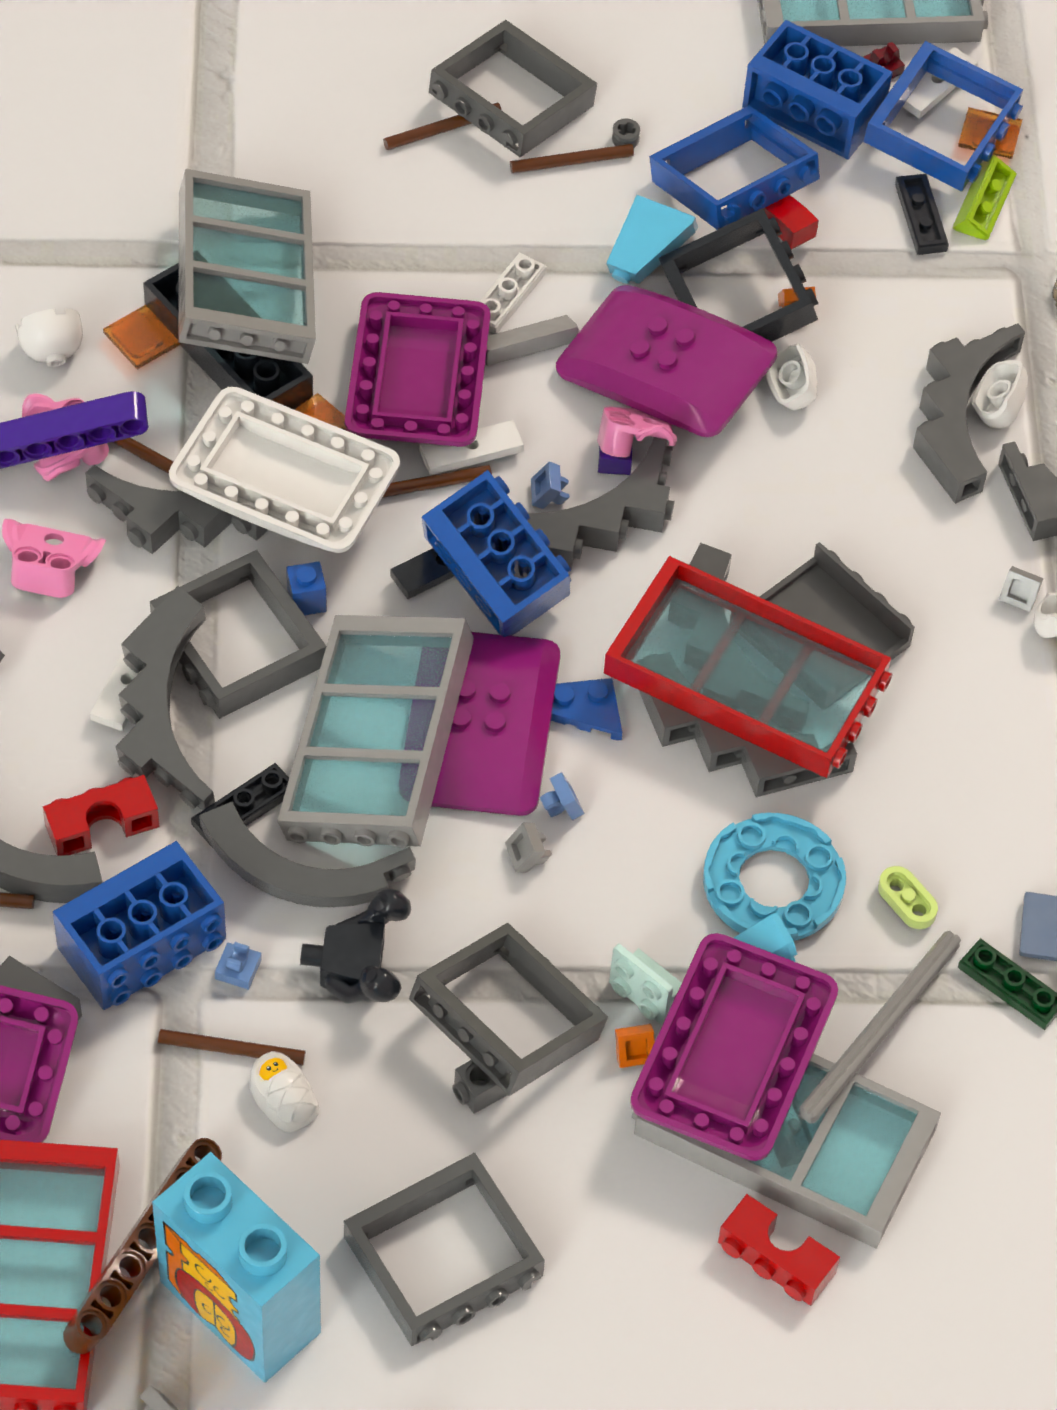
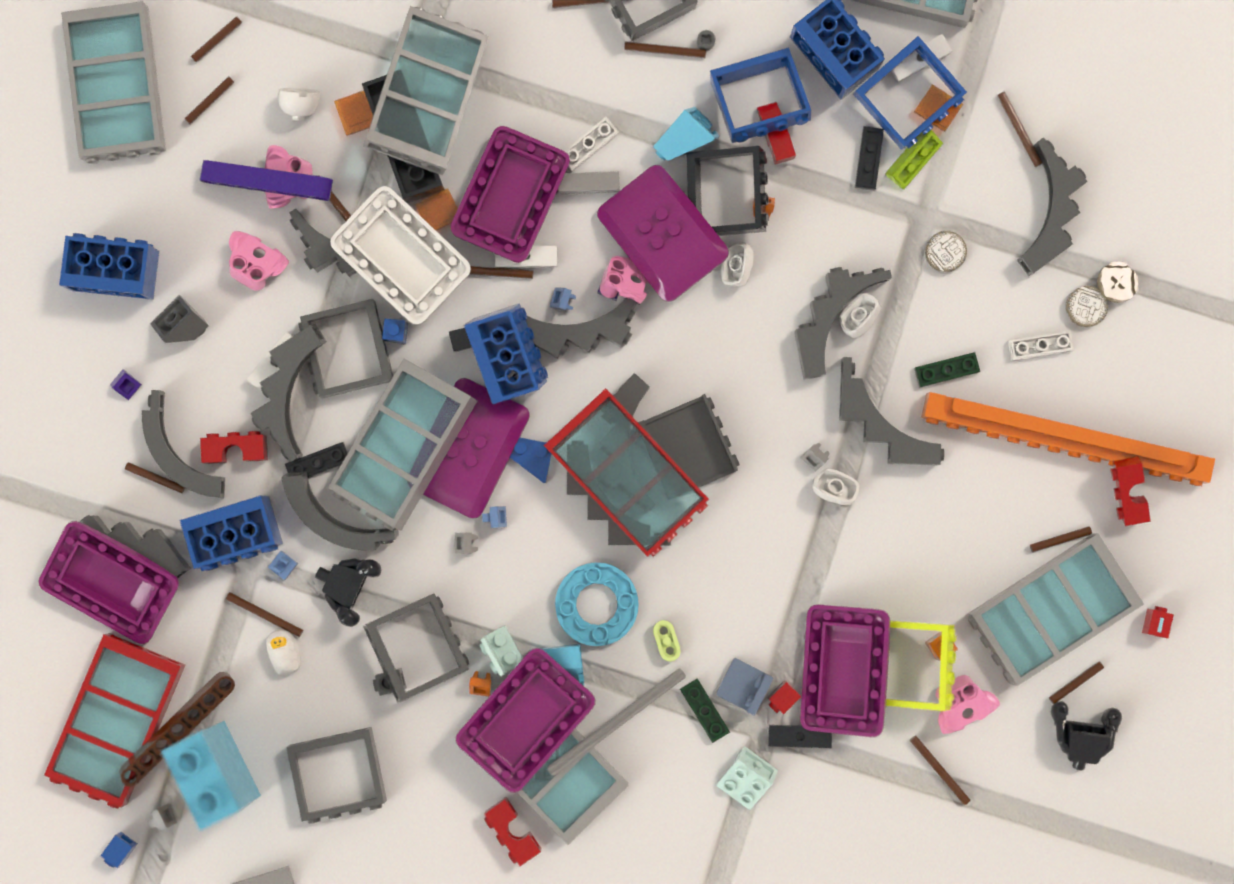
camera: 25 degrees right, 30 degrees up
(888, 58) = (892, 31): dark red tile -> none

